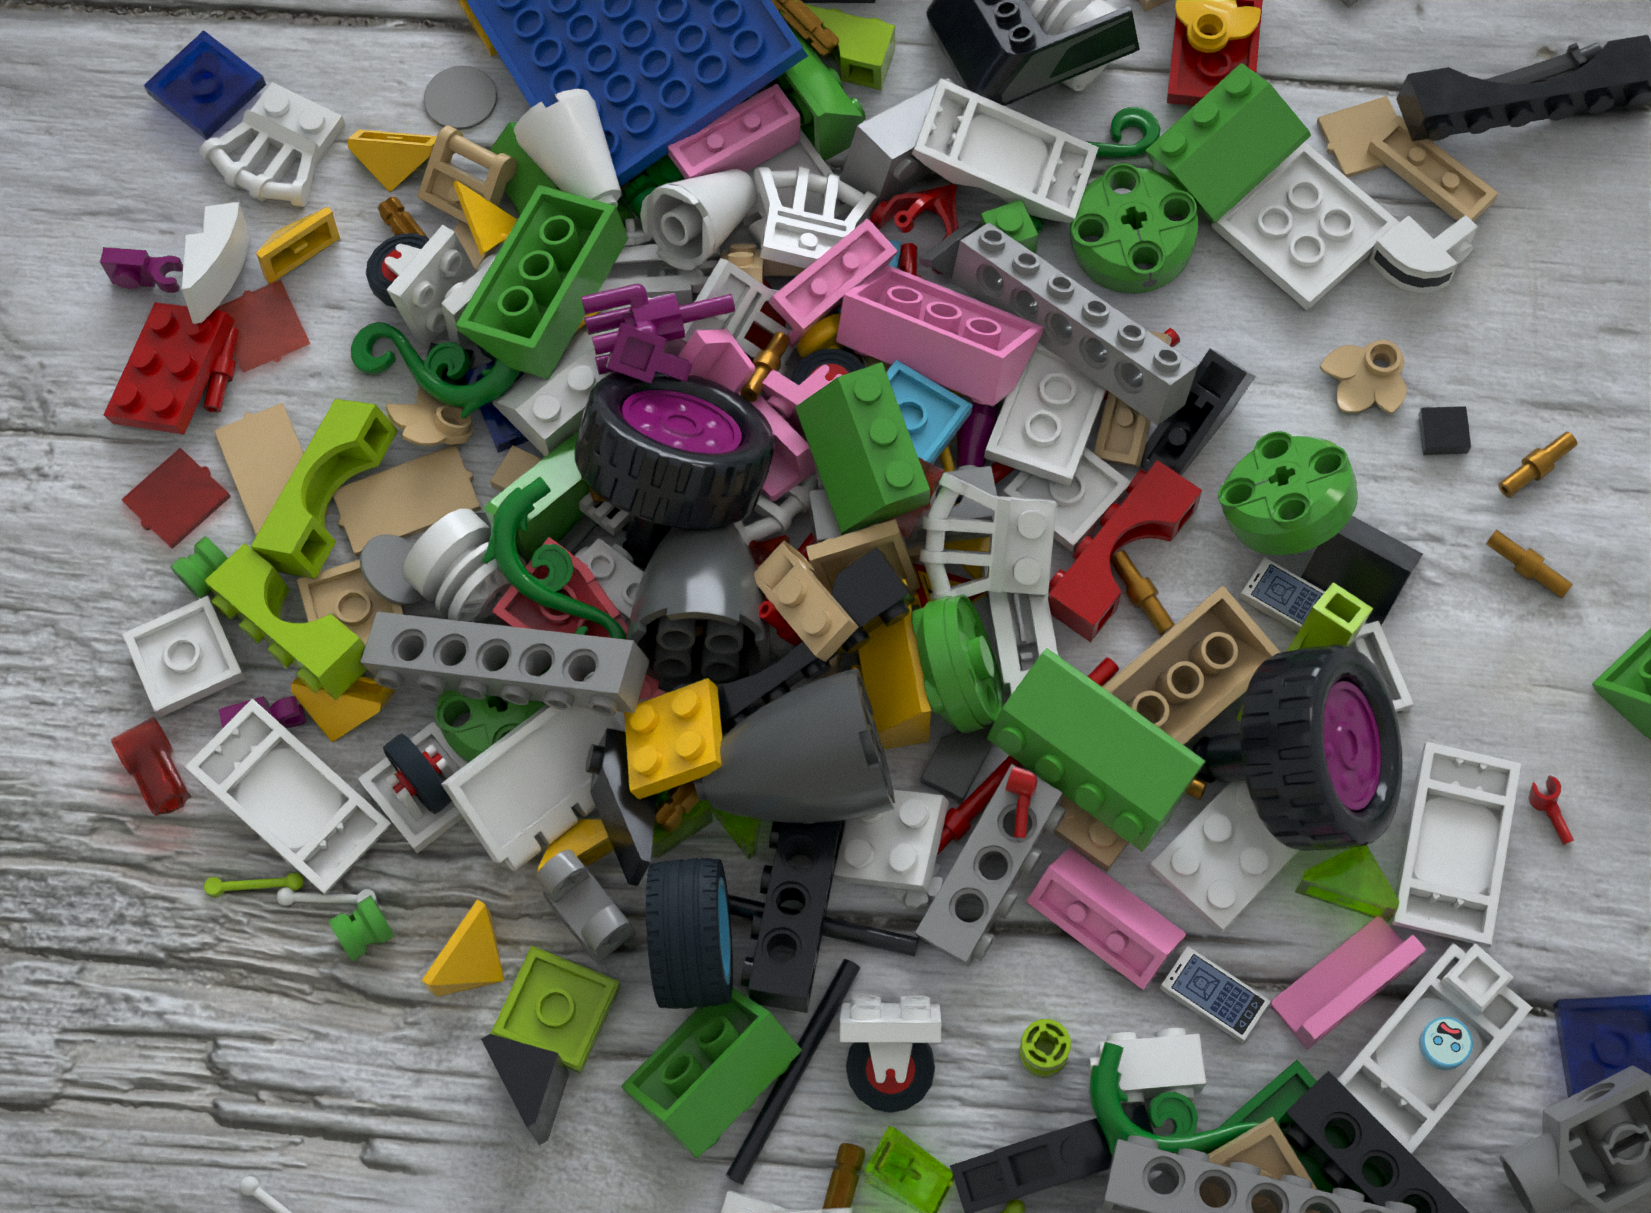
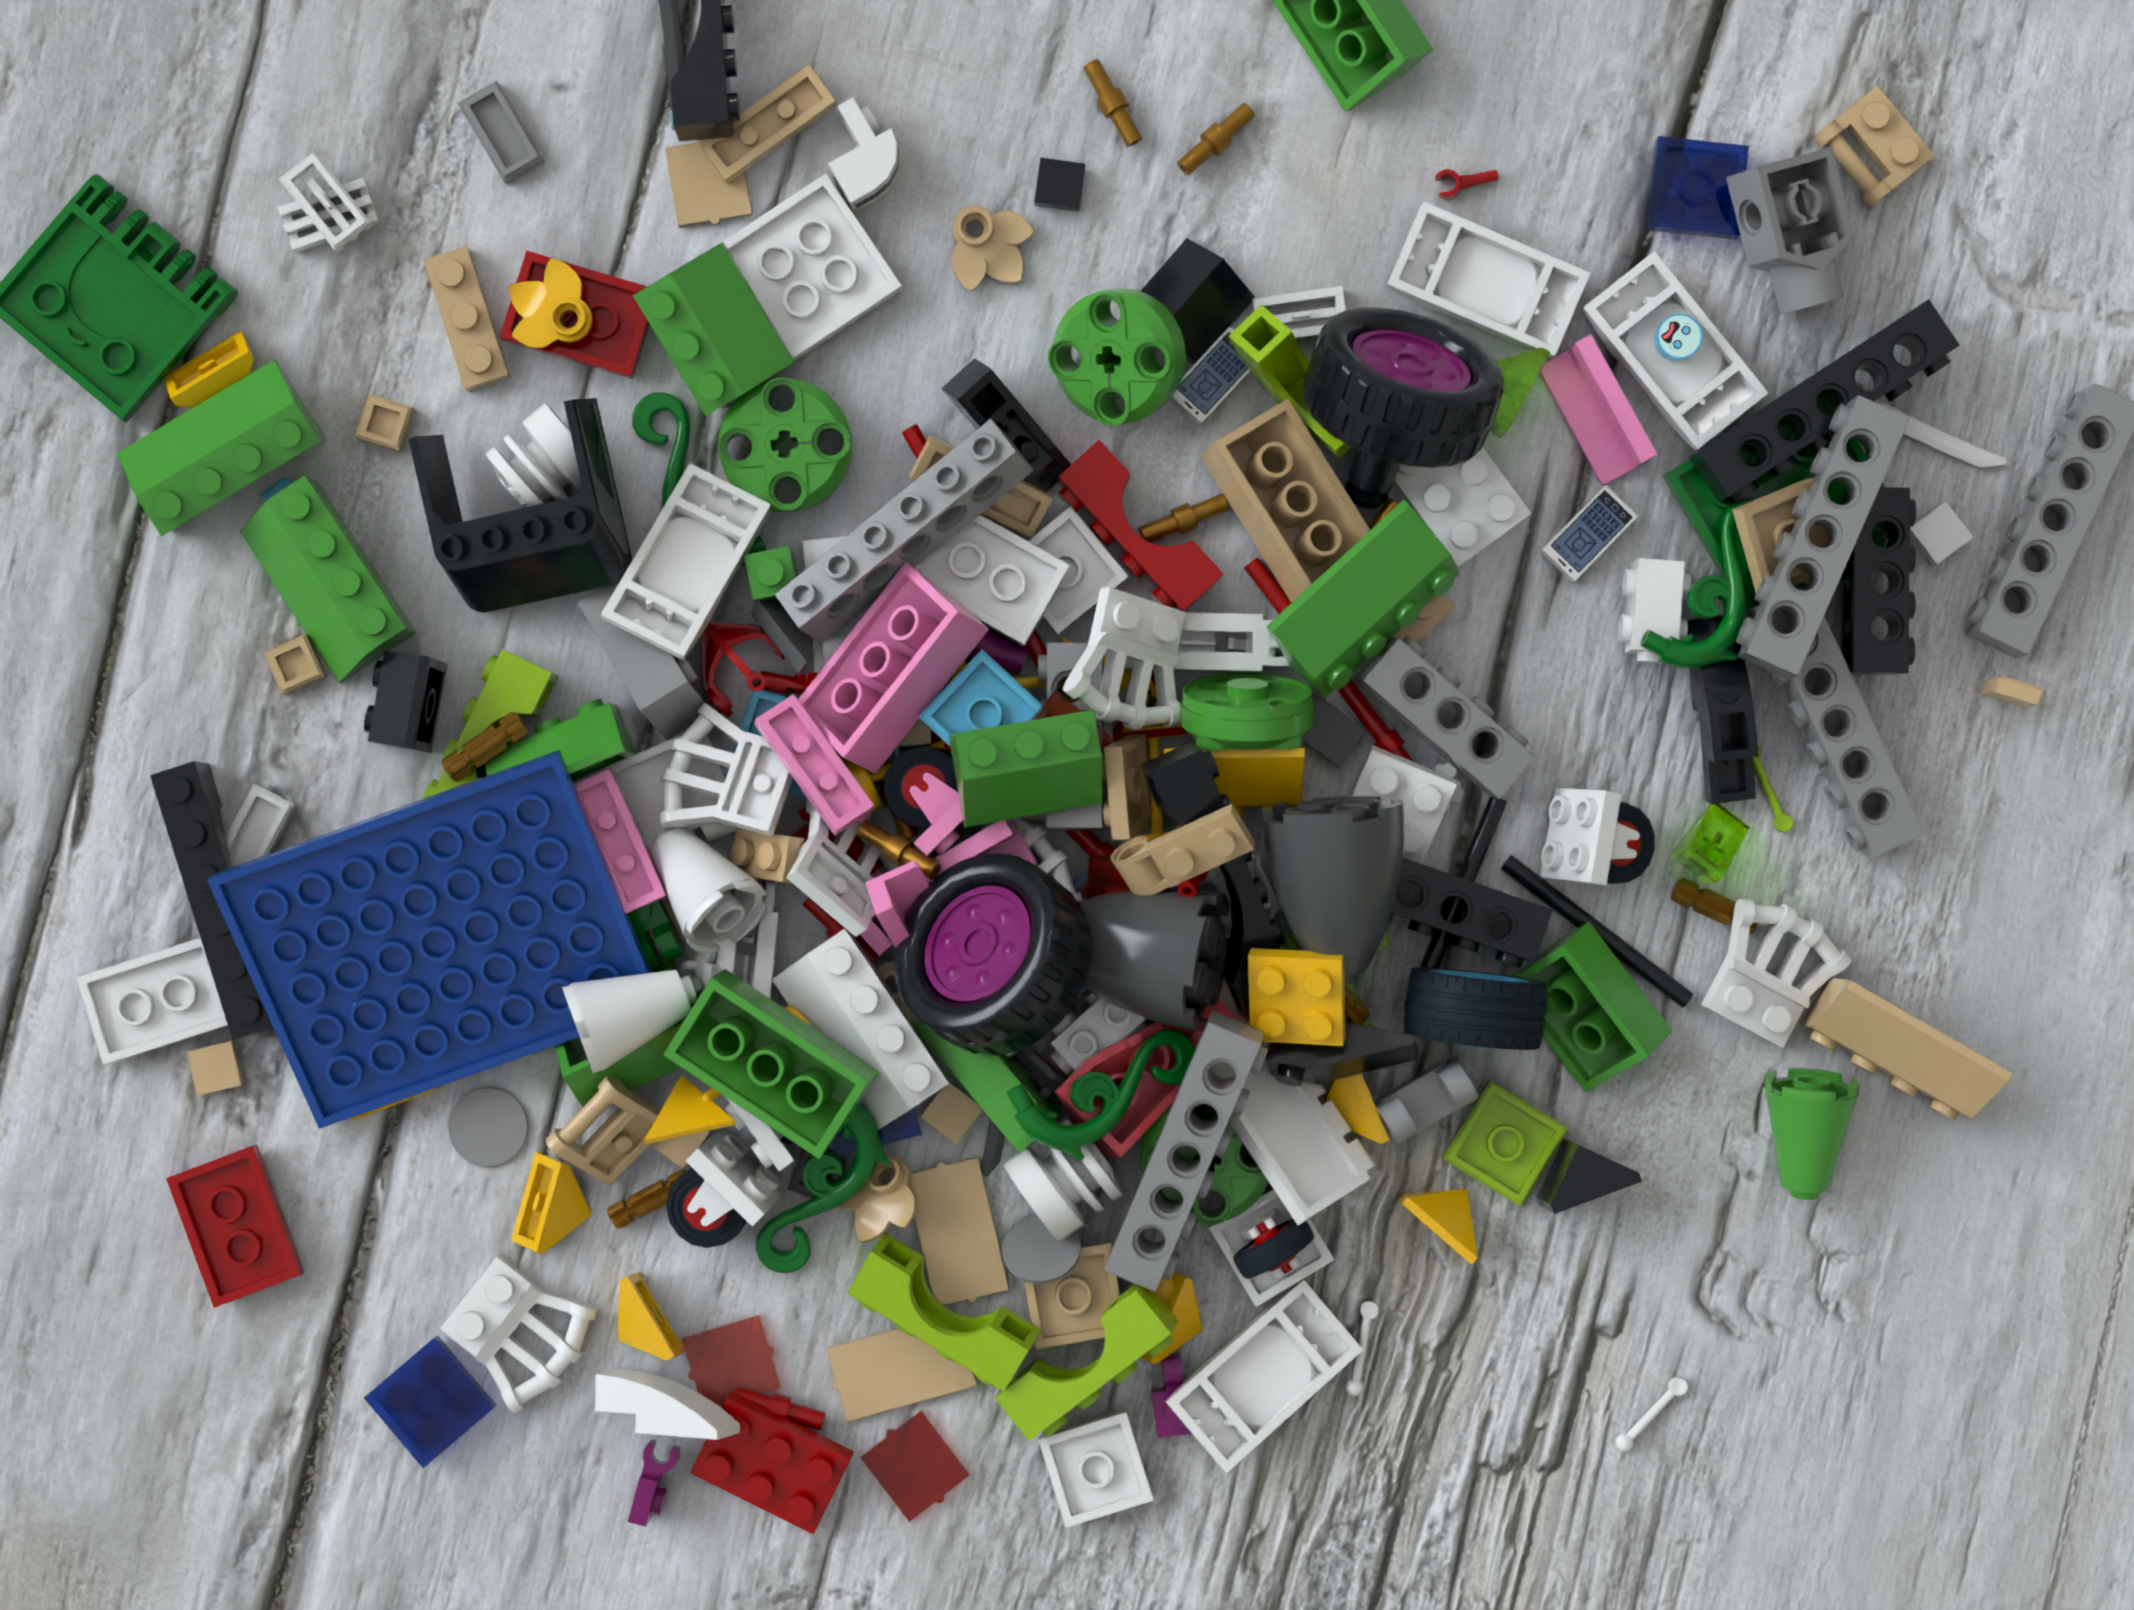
camera: 85 degrees left, 20 degrees up
(148, 758) = (1193, 1510): clear red piece -> none
(199, 566) = (1008, 1446): bright green wheel -> none
(215, 887) = (1333, 1453): lime hinge -> none
(361, 928) = (1403, 1317): bright green wheel -> none
(642, 354) = (896, 971): magenta plate -> none
(654, 315) = (852, 960): magenta plant -> none
(1023, 784) = (1389, 673): red hand -> none
(1044, 1057) = (1609, 699): lime wheel -> none
(1105, 917) = (1501, 617): bright pink panel -> none
(1476, 979) = (1623, 295): white tile -> none

